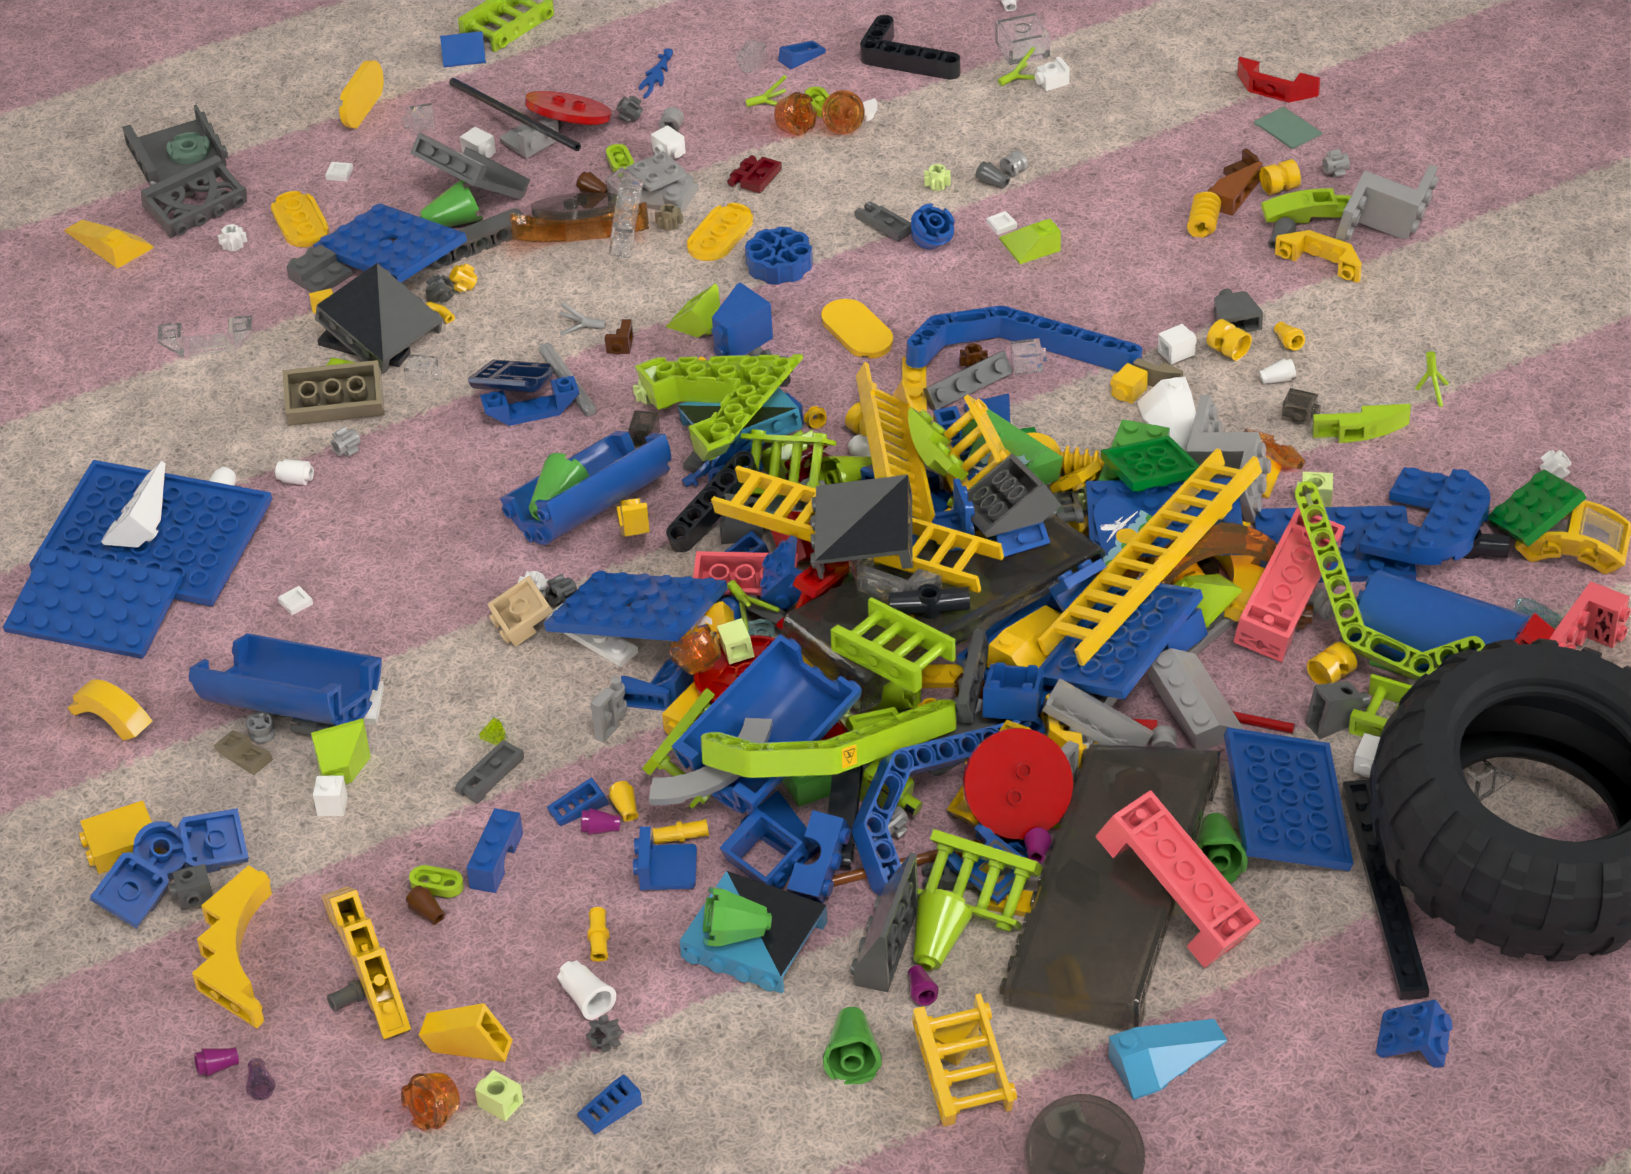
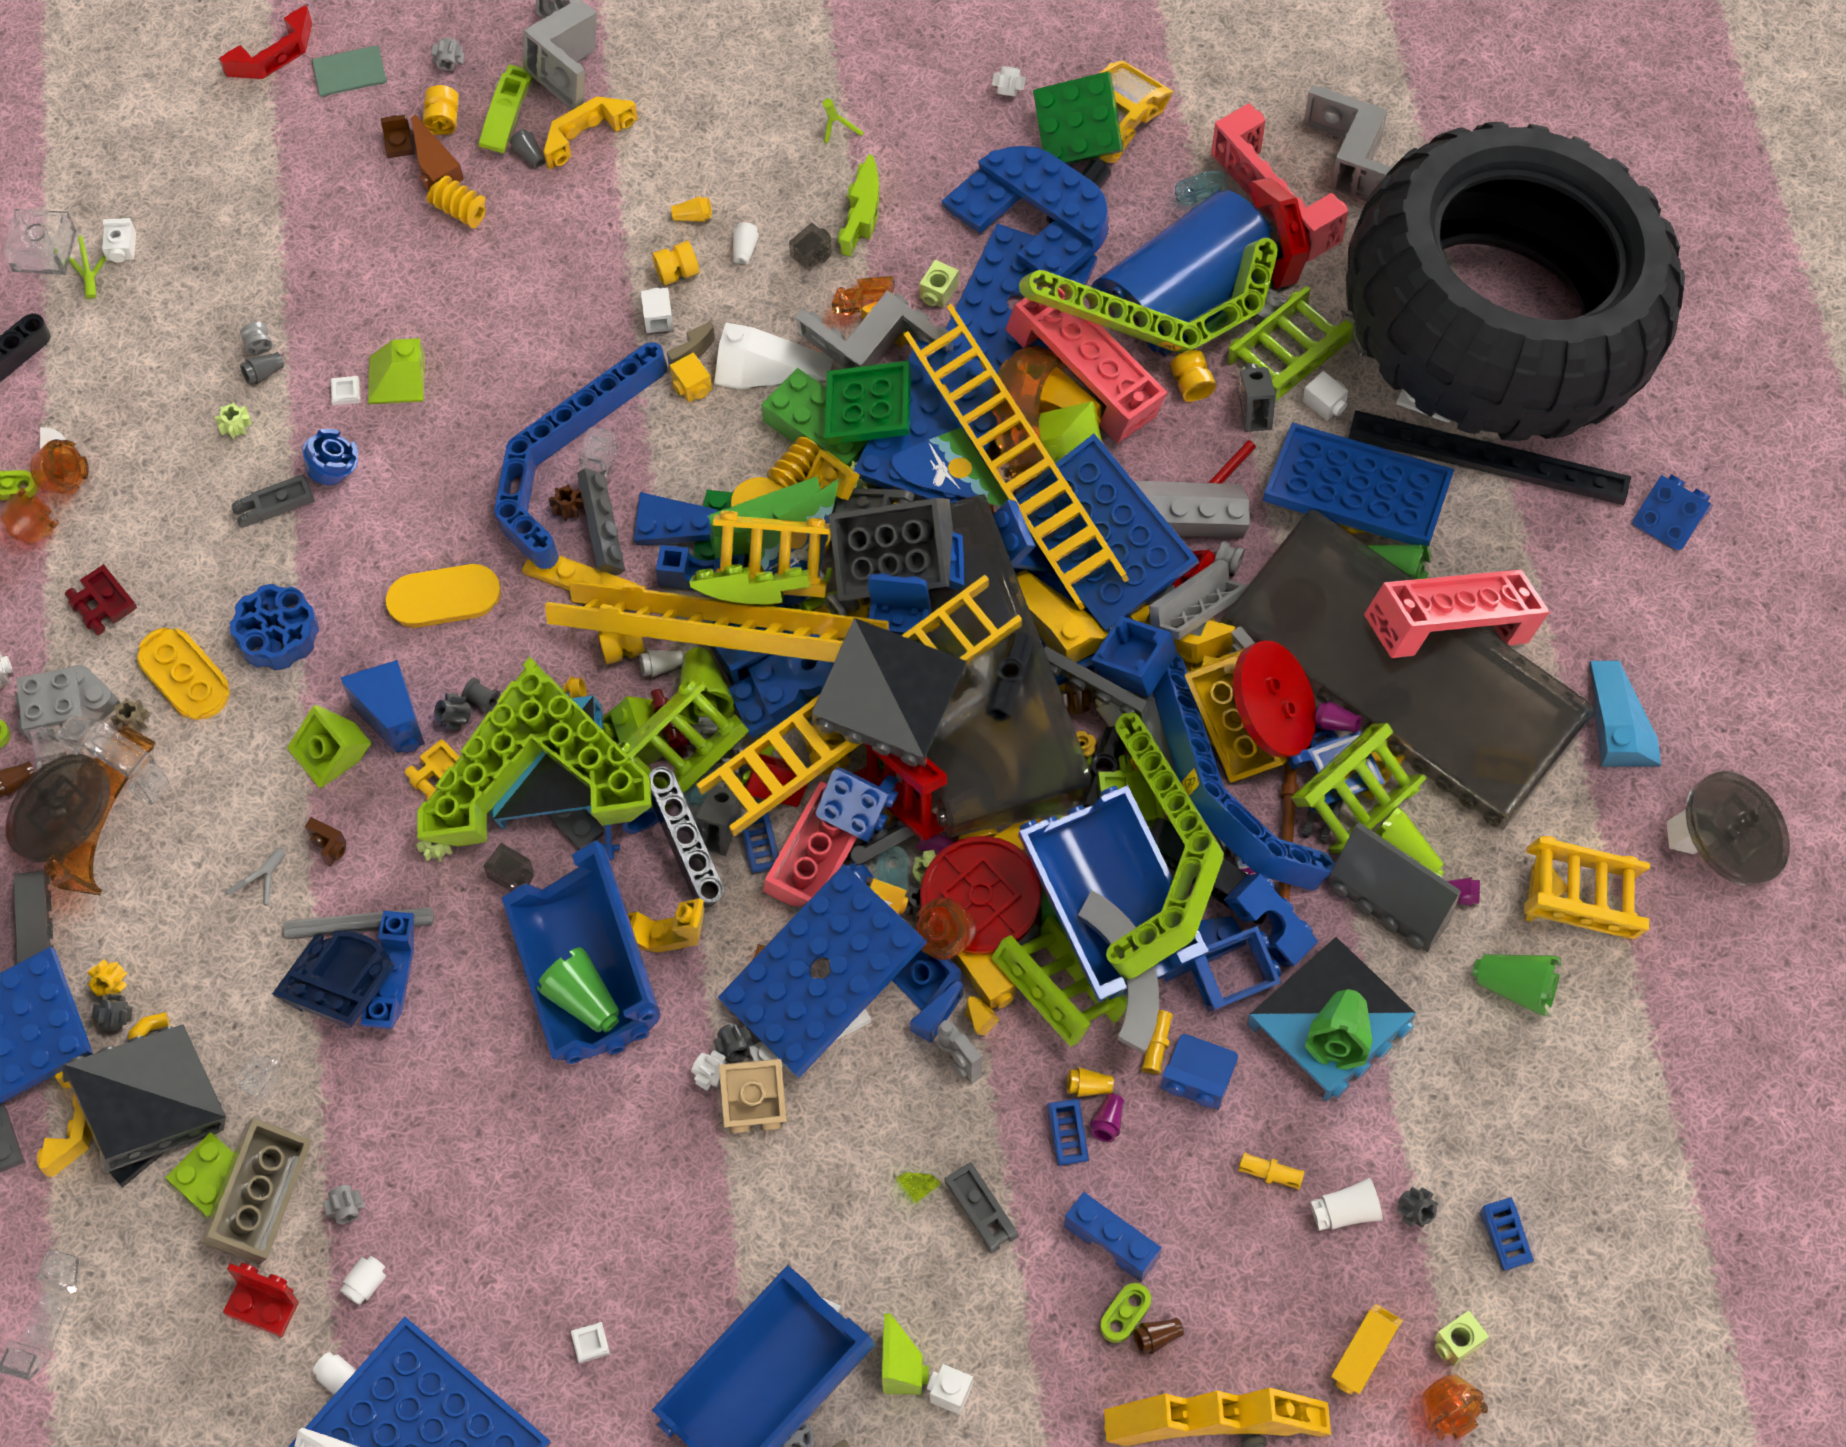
camera: 70 degrees left, 20 degrees up
(259, 430) = (260, 1300): none -> red bracket
(649, 717) = (980, 1015): none -> yellow slope
(735, 641) = (942, 883): yellowish green brick -> none
(744, 600) = (862, 858): lime plant -> none
(887, 663) = (1066, 760): lime fence -> none
(1238, 310) = (632, 240): dark grey torso -> none

